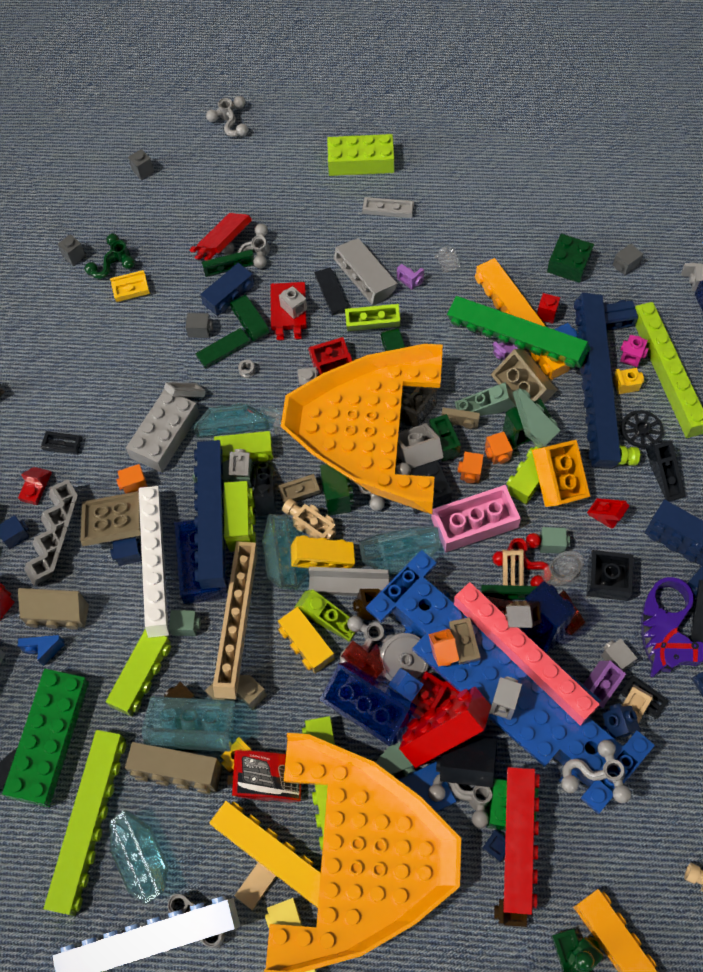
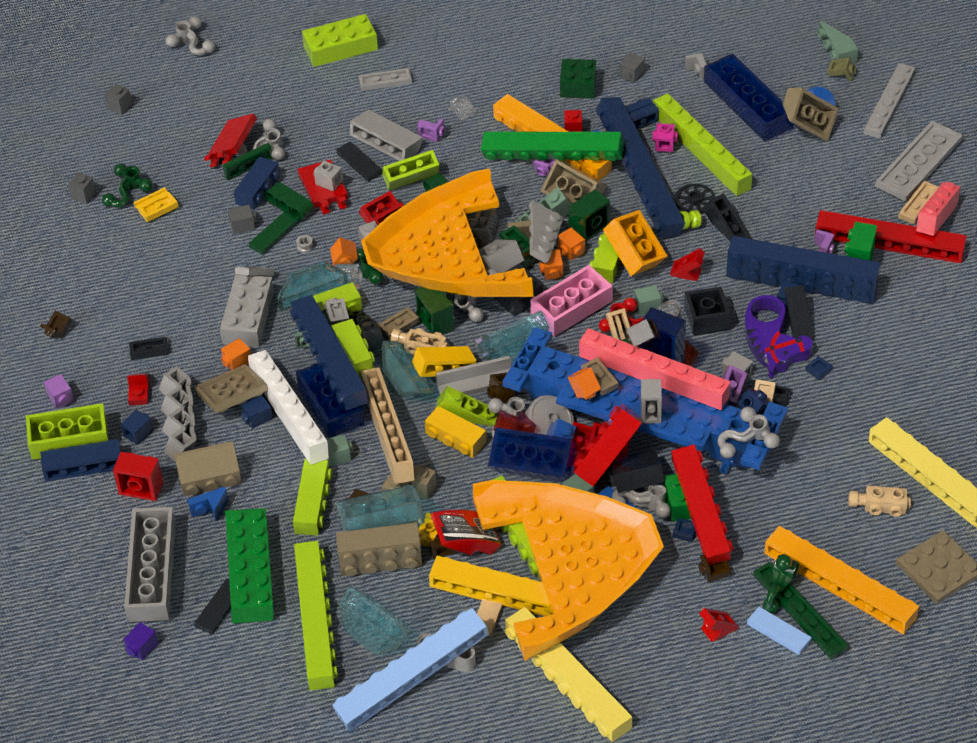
camera: 20 degrees left, 15 degrees down
(275, 393) = (343, 252): none -> orange brick
(474, 430) = (544, 230): none -> light grey wing
(535, 423) = (596, 204): sand green slope -> none
(628, 380) = (668, 163): yellow brick -> none

